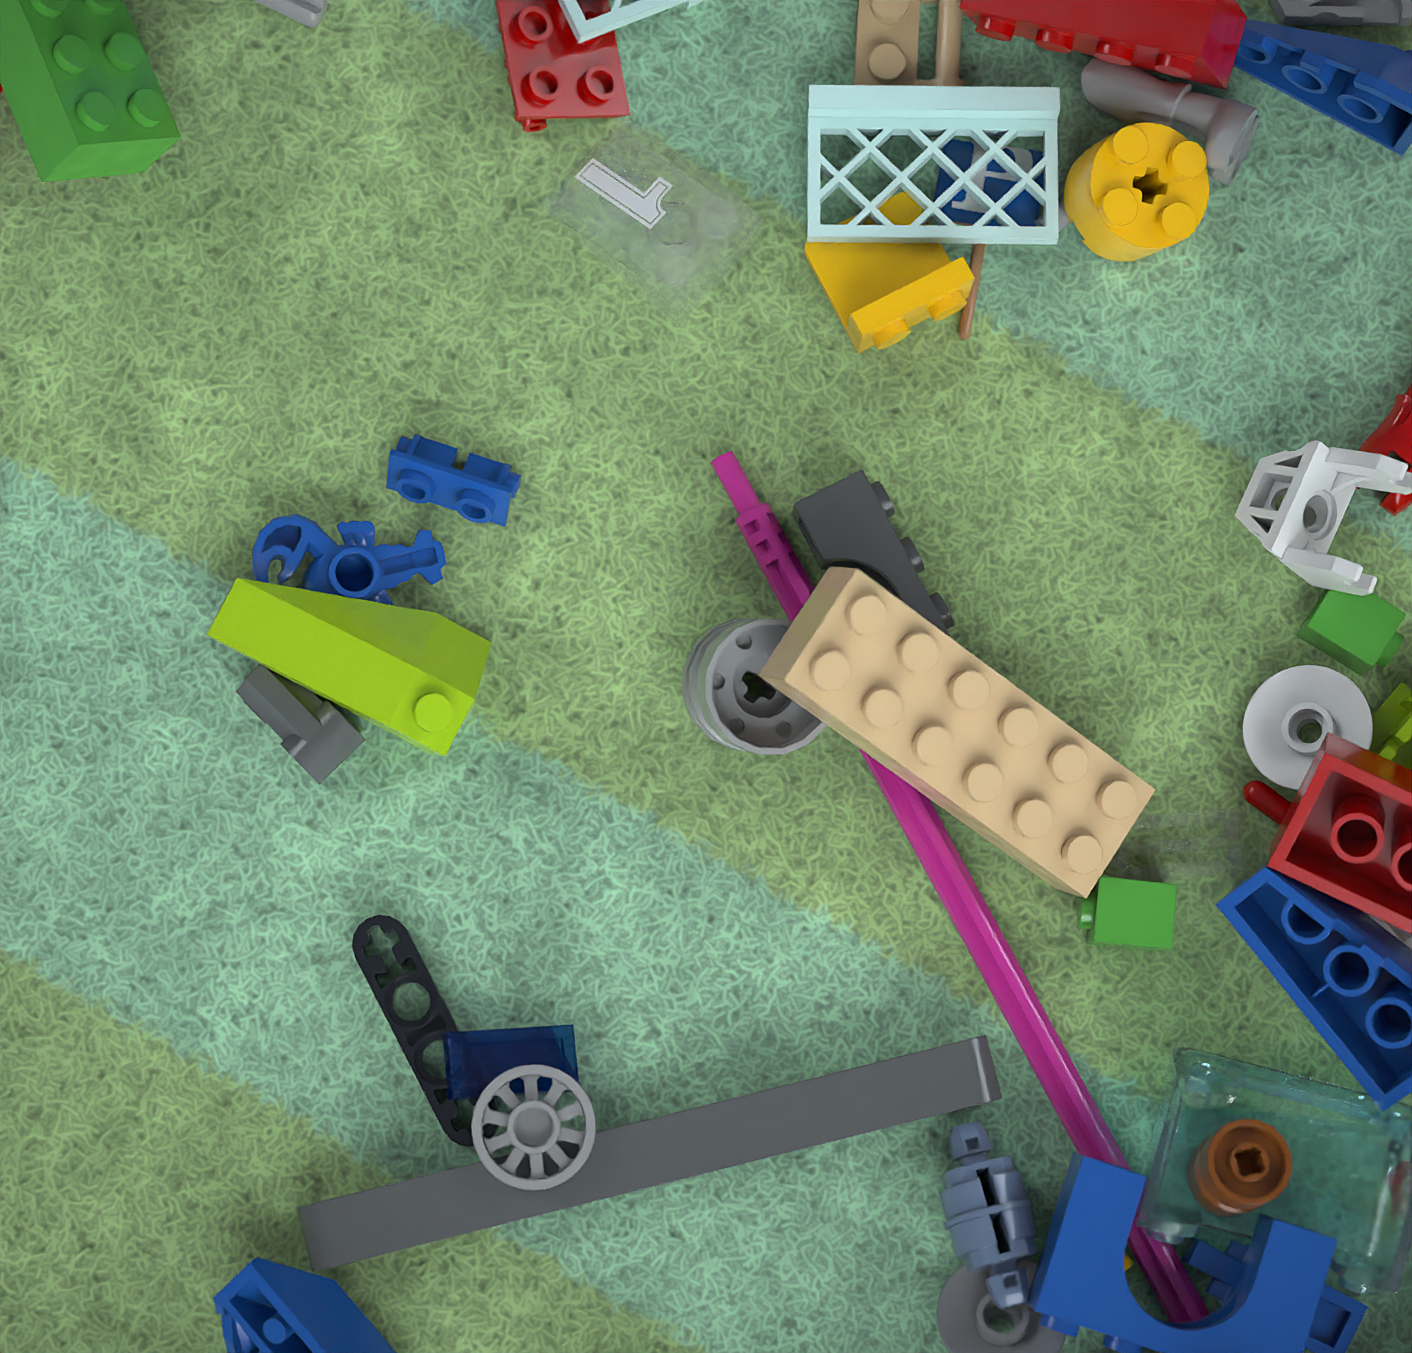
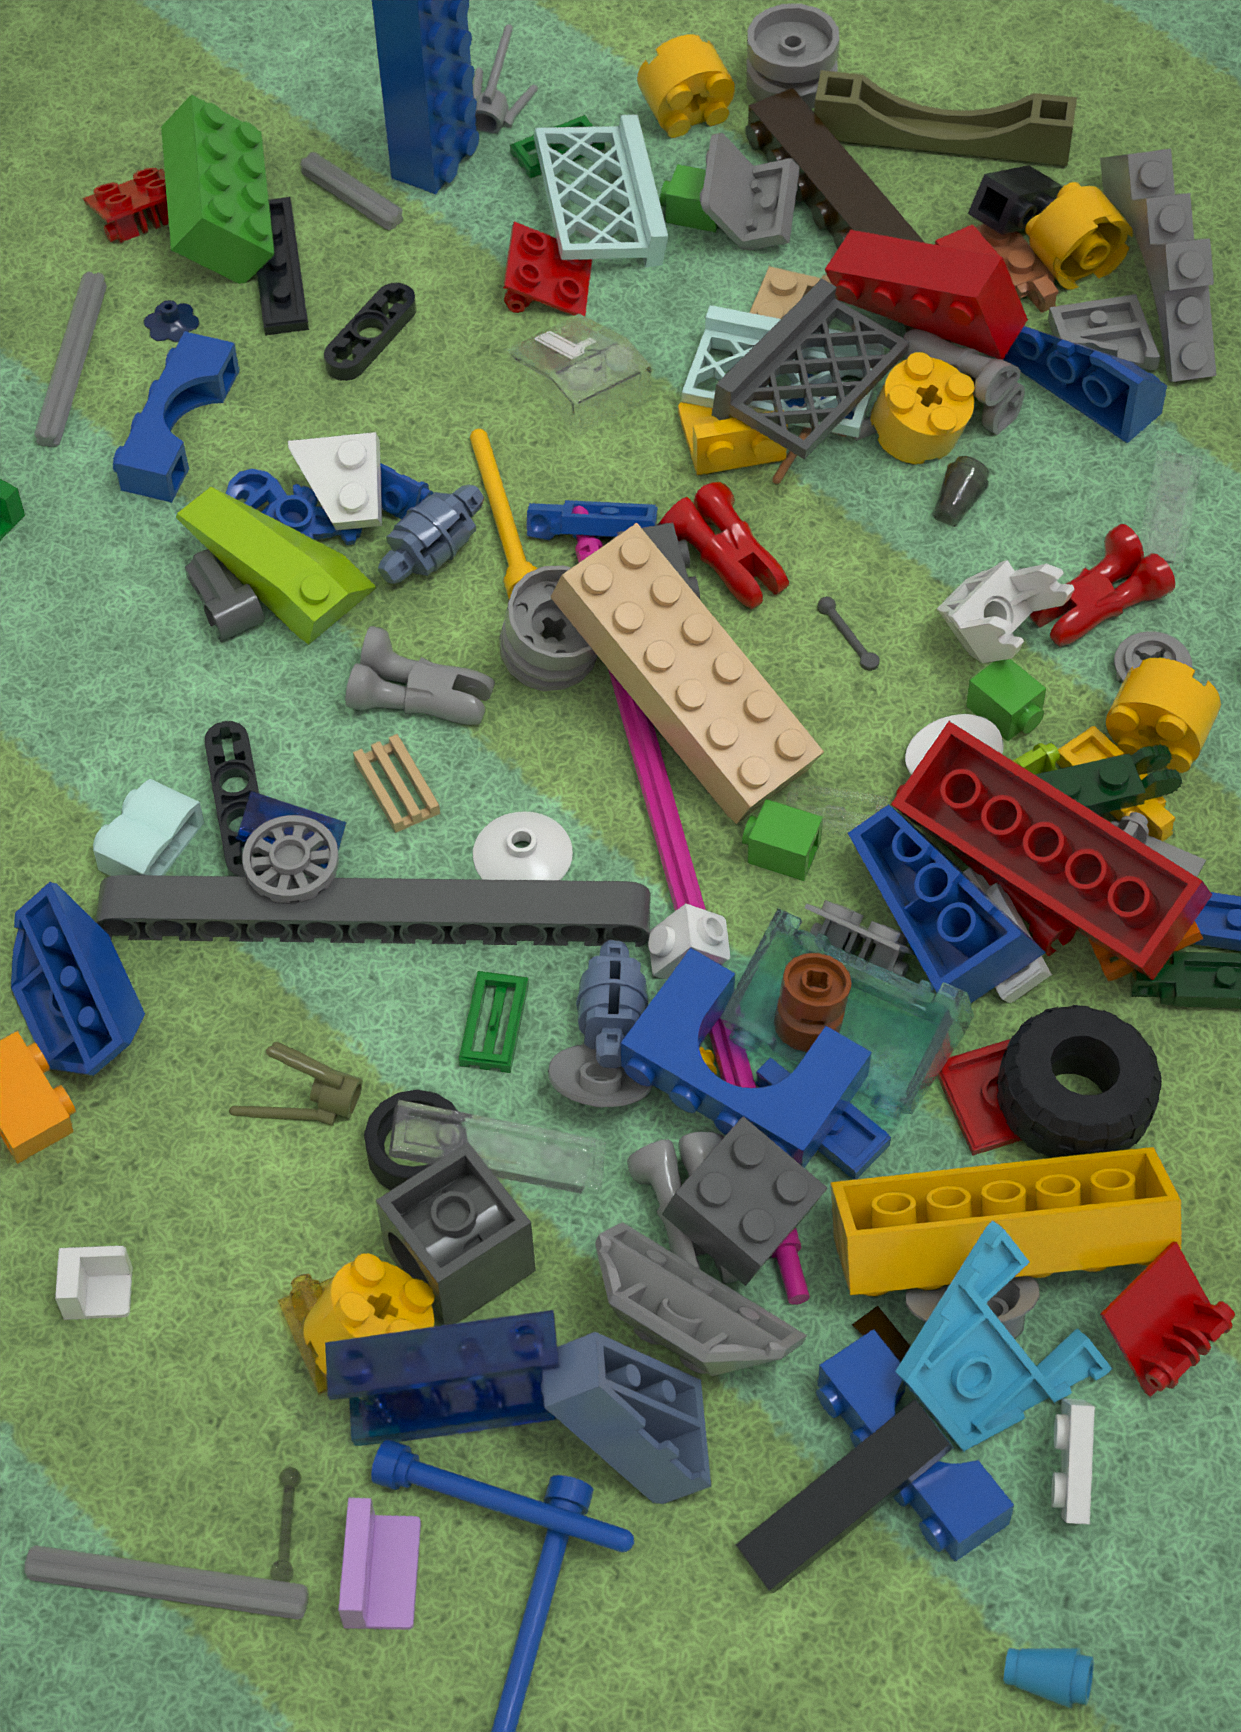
camera: 20 degrees right, 25 degrees down
(72, 277) = (171, 321): none -> dark blue plant
(139, 362) = (194, 376): none -> blue arch
(197, 160) = (281, 276): none -> black tile
(320, 258) = (370, 315): none -> black beam
(329, 1116) = (148, 833): none -> light aqua brick
(403, 504) = (344, 477): none -> white wing
(545, 556) = (431, 533): none -> sand blue piece
(579, 905) = (380, 754): none -> tan tile
(615, 794) = (430, 689): none -> light grey piece
(679, 583) = (501, 510): none -> yellow piece
(766, 469) = (603, 518): none -> blue hinge
(769, 1008) = (544, 859): none -> white dish
(850, 1318) = (487, 1058): none -> green tile
(934, 167) = (776, 356): none -> dark grey fence
(946, 481) = (734, 551): none -> red piece
(1054, 1097) = (684, 930): none -> white bracket
(1157, 596) = (869, 660): none -> dark grey hinge
(1210, 300) = (961, 488): none -> clear smoke cone
(1263, 1038) = (843, 921): none -> light grey hinge

